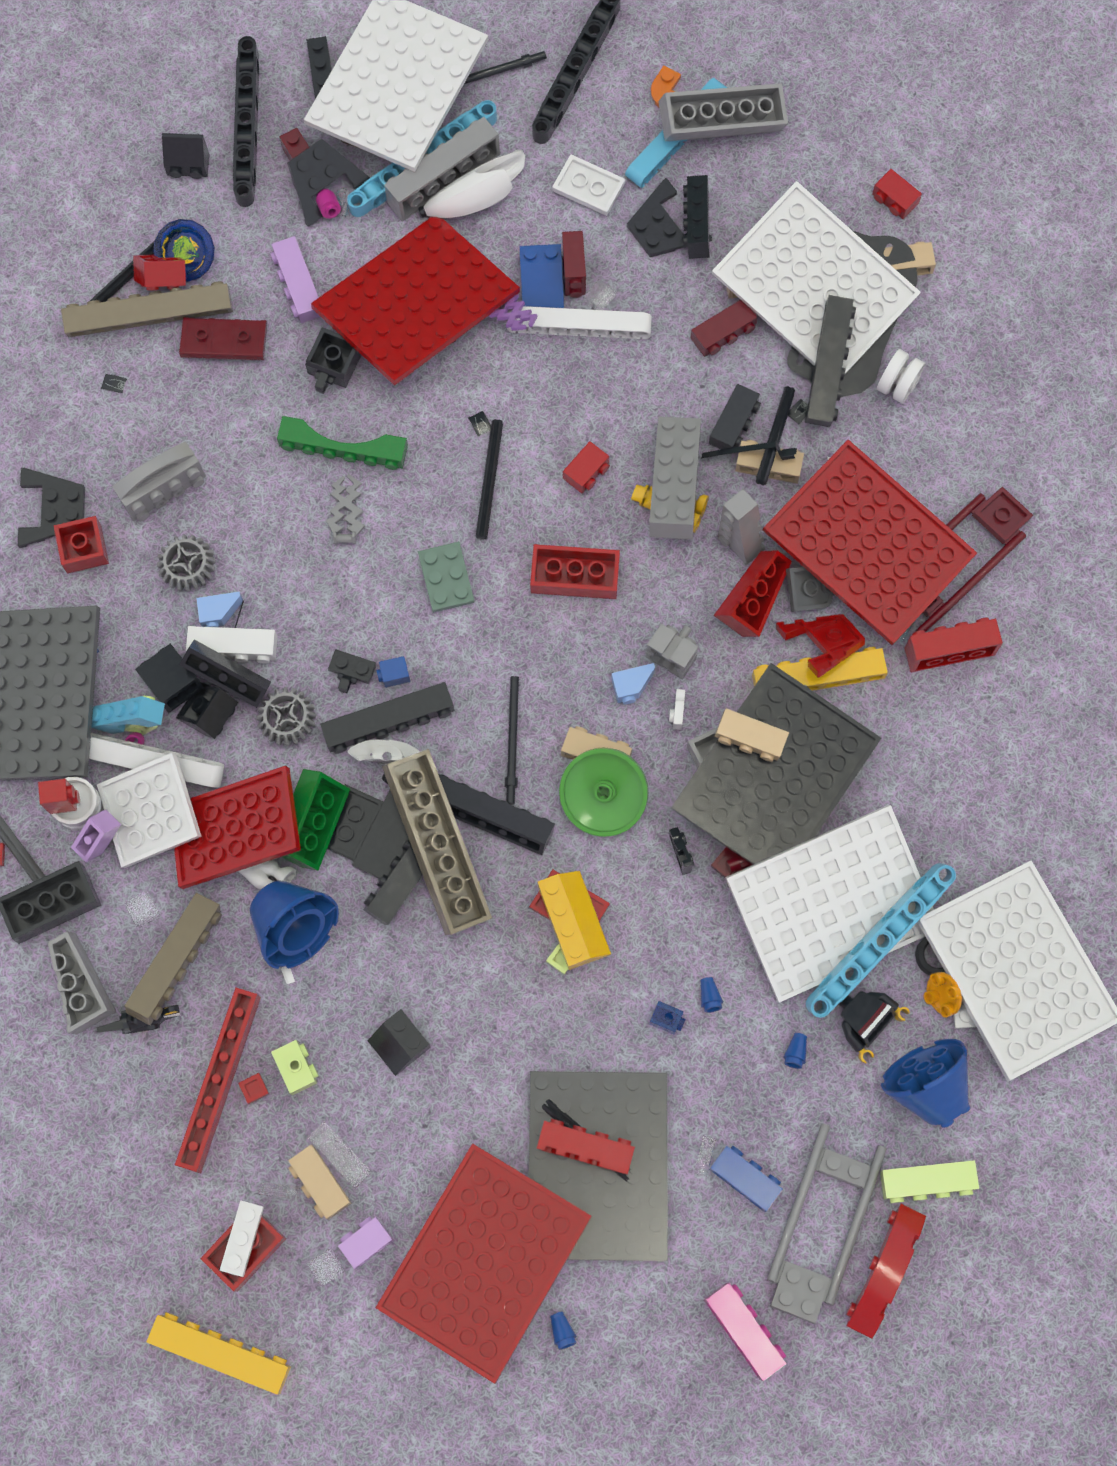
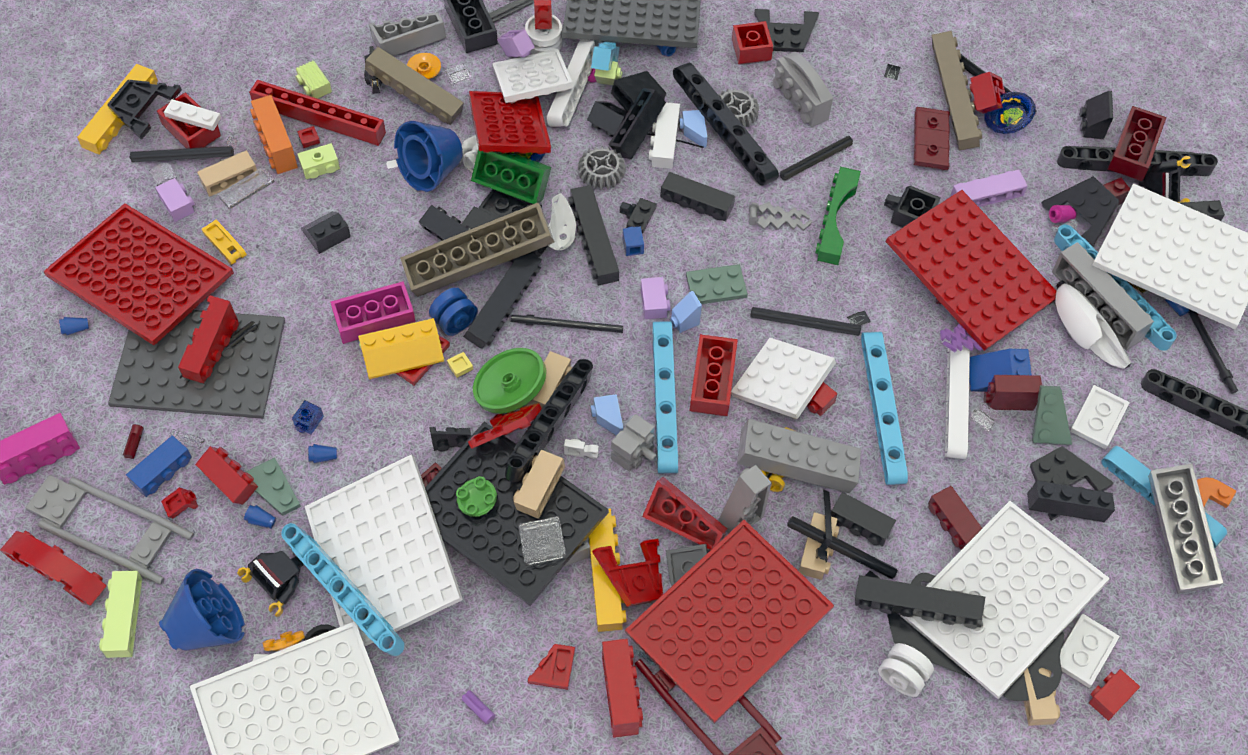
camera: 90 degrees right, 15 degrees down
(122, 947) = (425, 61): none -> light orange dish
(160, 1097) = (313, 80): none -> yellowish green brick
(217, 571) = (725, 124): none -> black beam
(219, 1326) = (135, 98): none -> black wing
(236, 113) = (1137, 143): none -> dark red brick
(255, 469) = (816, 158): none -> black axle
(260, 1129) = (273, 135): none -> orange brick
(285, 93) = (1165, 179): none -> black torso
(292, 1249) = (178, 154): none -> black axle
(324, 602) = (697, 196): none -> black brick
(424, 1167) = (223, 241): none -> yellow plate
(473, 642) = (654, 298): none -> lavender brick
(496, 604) = (686, 313): none -> light blue slope
(516, 865) = (453, 311): none -> blue wheel
(521, 962) = (372, 311): none -> dark pink brick
(573, 497) = (783, 378): none -> white plate
(579, 854) = (460, 364): none -> light yellow plate
(595, 396) = (884, 408): none -> medium azure beam
(600, 624) = (665, 398): none -> medium azure beam
(603, 228) = (1051, 418): none -> sand green wing
(674, 741) = (548, 420): none -> black beam
(674, 770) = (507, 424): none -> red wing
(713, 1219) = (133, 441): none -> dark red piece
(751, 1095) = (227, 475): none -> red brick
(754, 1045) = (274, 487): none -> sand green wing
(768, 803) = (476, 497): none -> bright green dish
(788, 1145) = (179, 501): none -> red bracket
(813, 728) = (542, 540): none -> clear tile
(857, 212) = (1086, 650): none -> white plate
(932, 715) = (554, 668): none -> red wing
(983, 788) = (478, 707): none -> medium lavender piece

